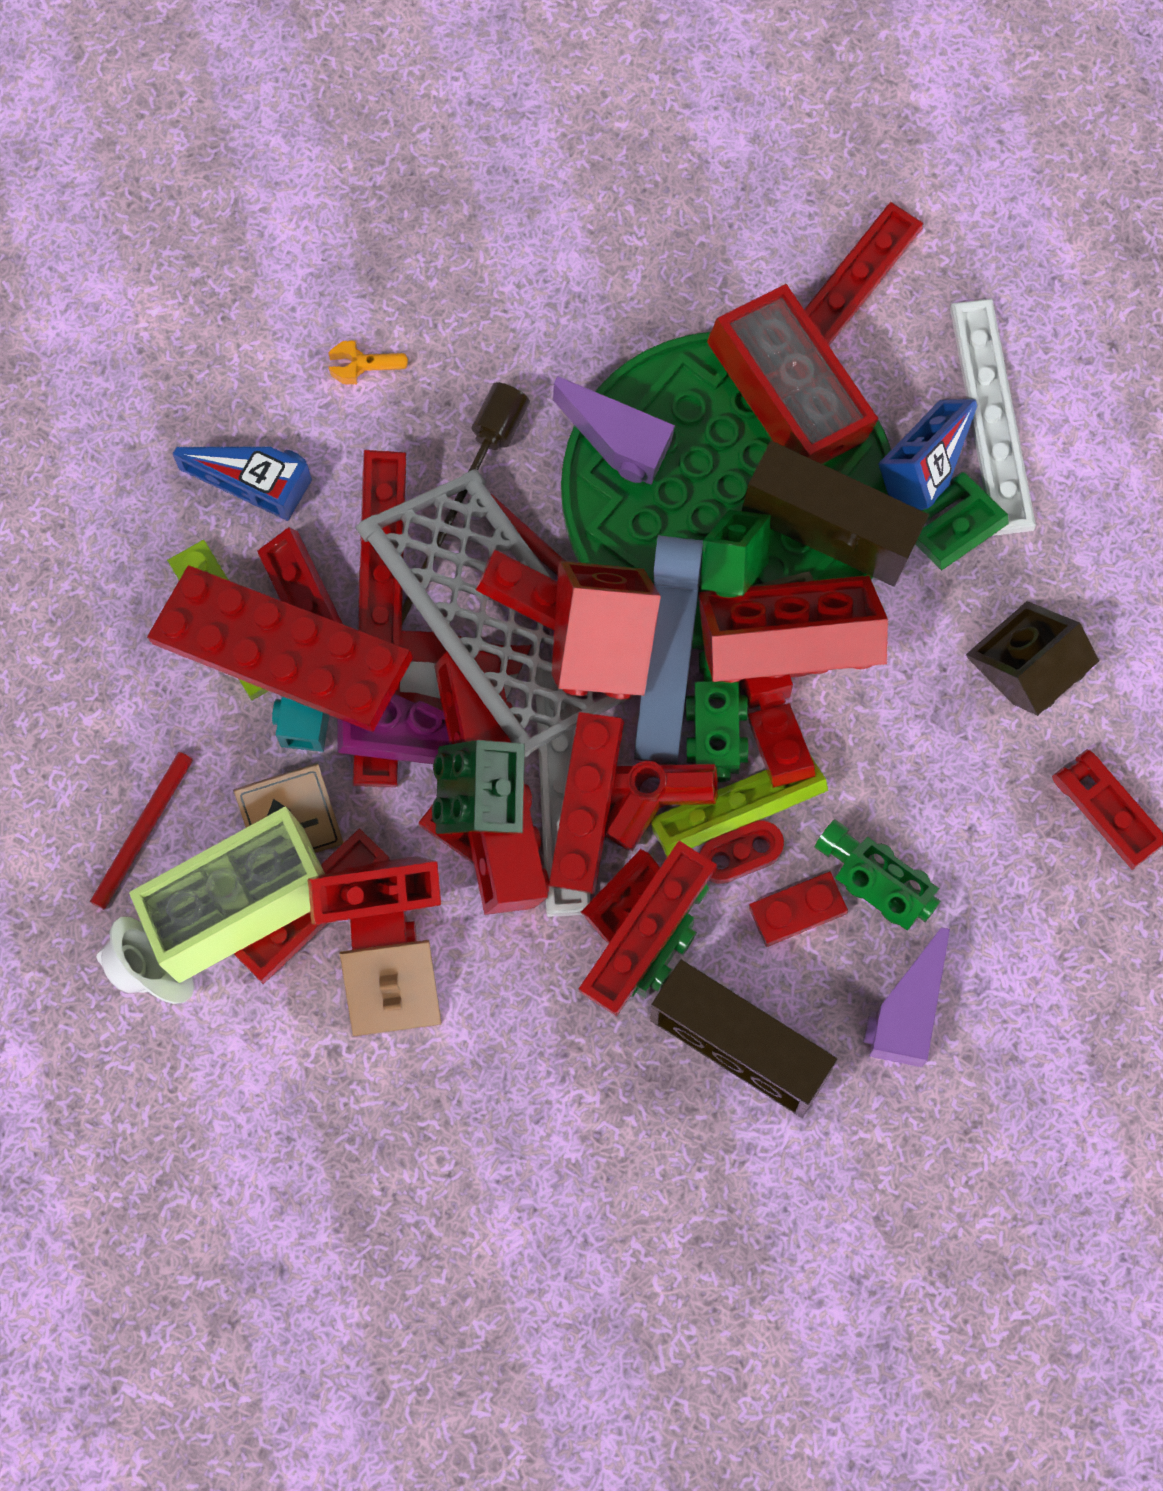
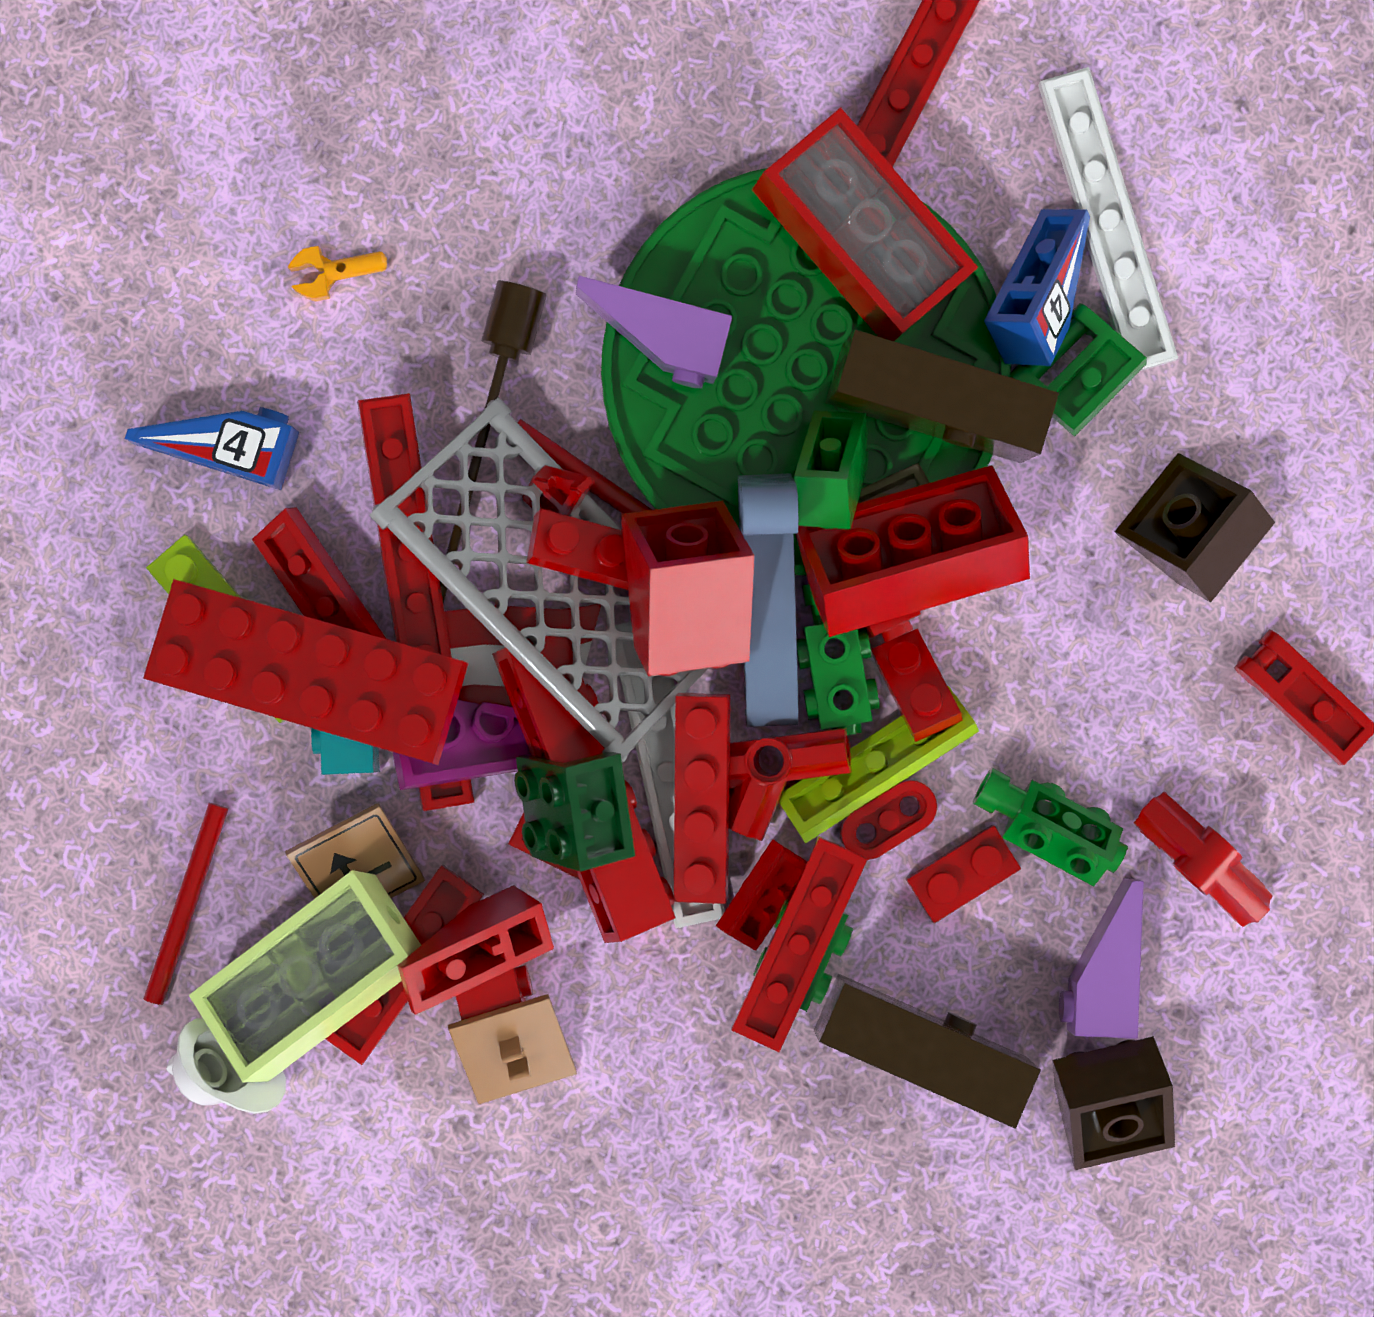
camera: 15 degrees left, 15 degrees up
(515, 542) = (561, 489): none -> red tile
(901, 1120) = (1115, 1102): none -> dark brown slope
(1006, 923) = (1205, 859): none -> red piece

